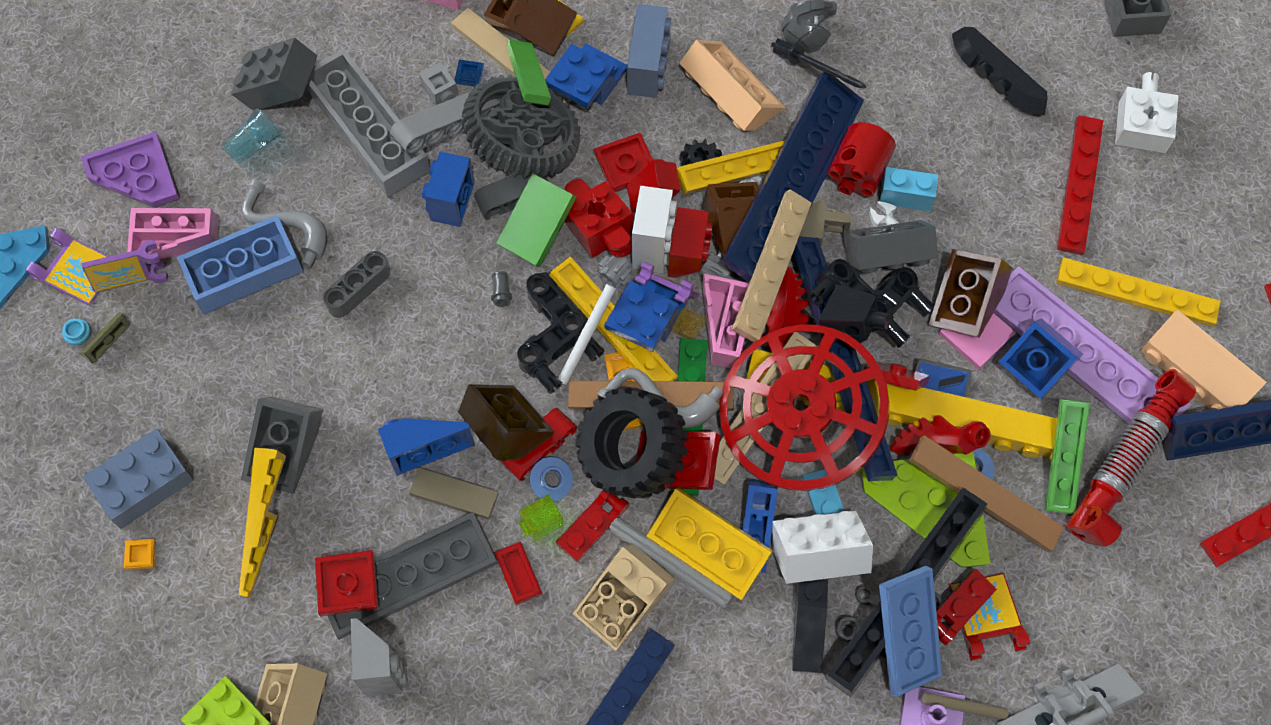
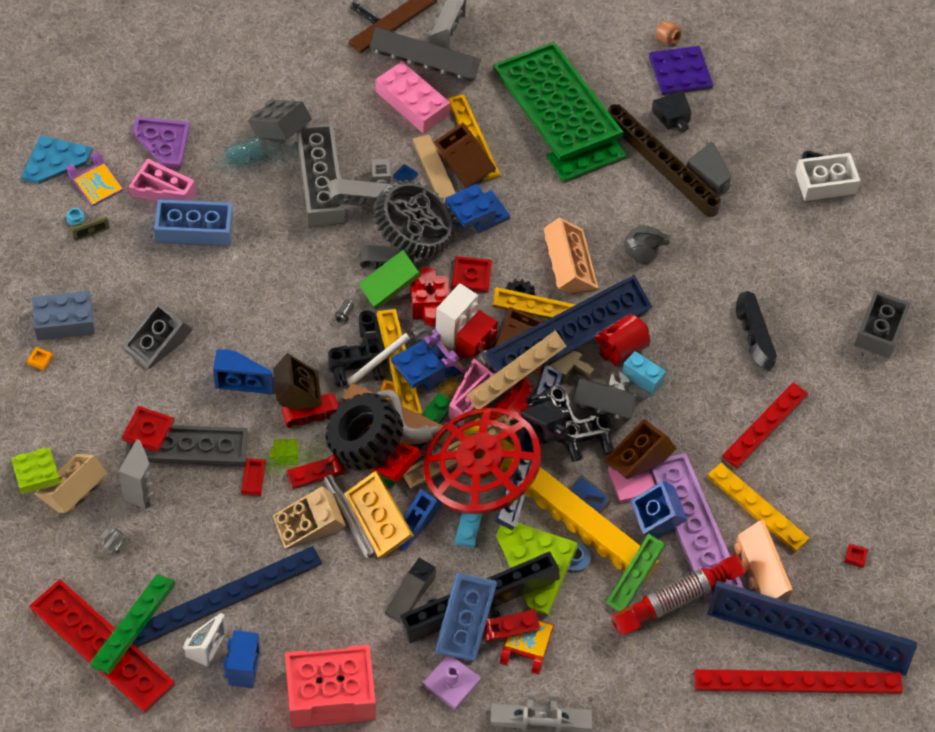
camera: 25 degrees right, 10 degrees down
(125, 268) = (124, 192): flag -> none
(260, 522) = (119, 372): yellow wedge -> none
(312, 227) = (250, 220): light grey animal -> none
(360, 272) = (247, 268): dark grey beam -> none
(448, 188) = (347, 236): blue brick -> none
(454, 493) = (243, 414): dark tan tile -> none
(528, 72) = (439, 188): bright green tile -> none
(538, 473) = (313, 427): medium blue piece -> none
(648, 51) = (526, 211): sand blue brick -> none
(656, 175) = (483, 288): red brick -> none
(795, 54) = (624, 258): black piece -> none
(821, 547) = (444, 547): white brick -> none
(902, 377) = (559, 476): red plate -> none
(953, 439) = (562, 525): red plant -> none
(965, 706) = (477, 682): dark tan bar -> none
(1000, 502) = (569, 570): medium nougat tile -> none
(1147, 117) = (837, 403): white brick -> none

